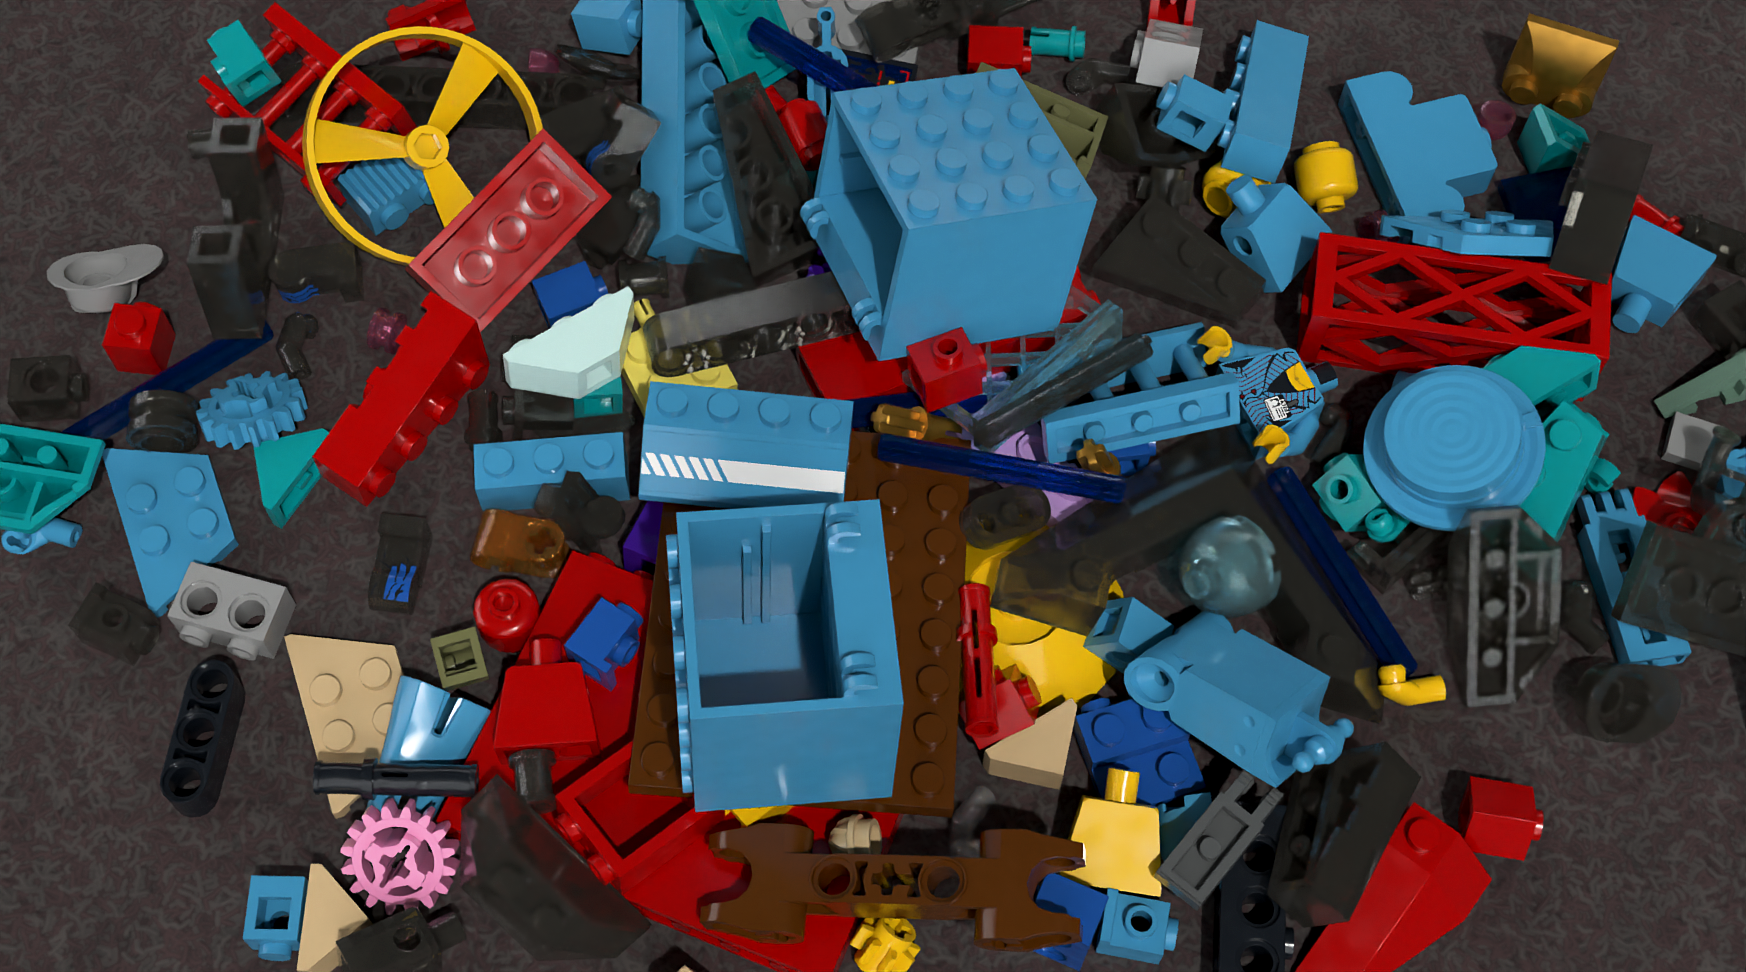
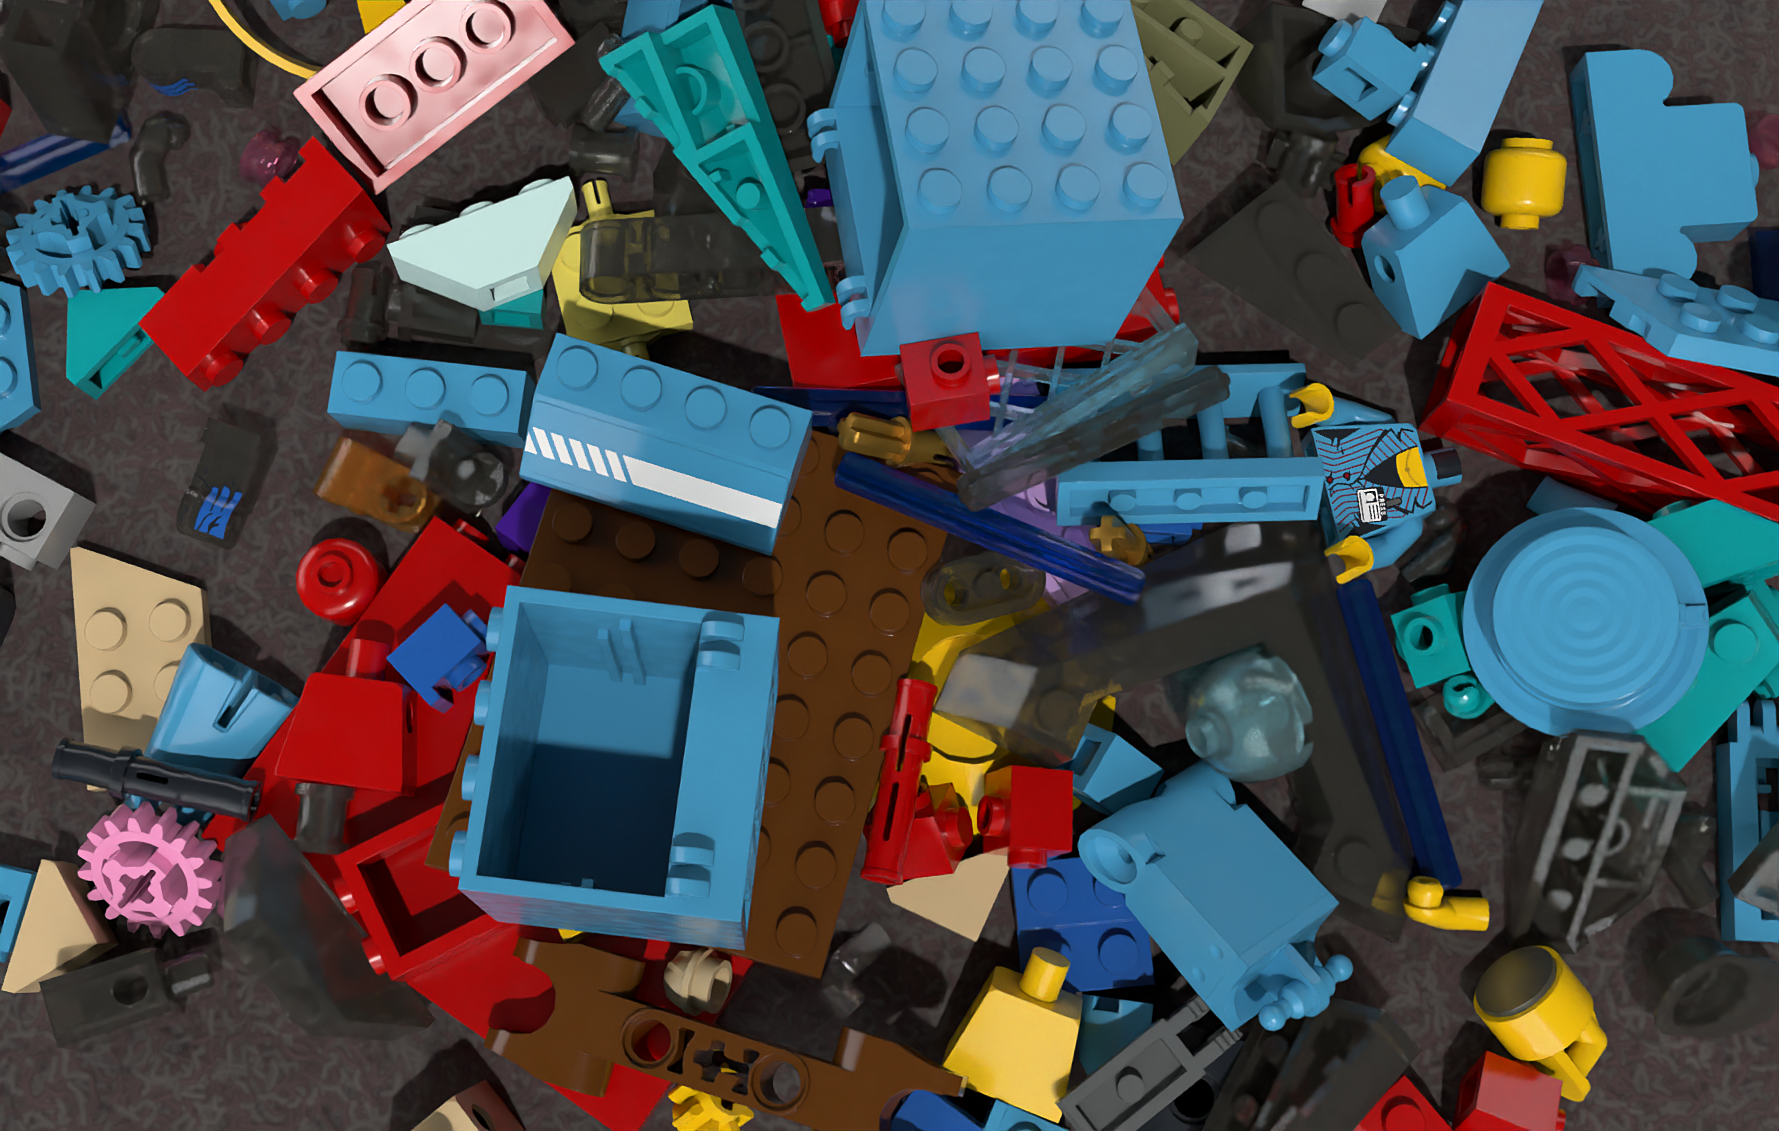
camera: 15 degrees right, 15 degrees up
(459, 659) = (270, 634): olive leg -> none
(567, 292) = (503, 160): blue brick -> none
(728, 220) = (712, 109): none -> teal wedge
(1079, 667) = (1027, 815): none -> red brick
(1208, 209) = (1353, 204): none -> red pin
(1497, 737) = (1538, 1011): none -> yellow piece

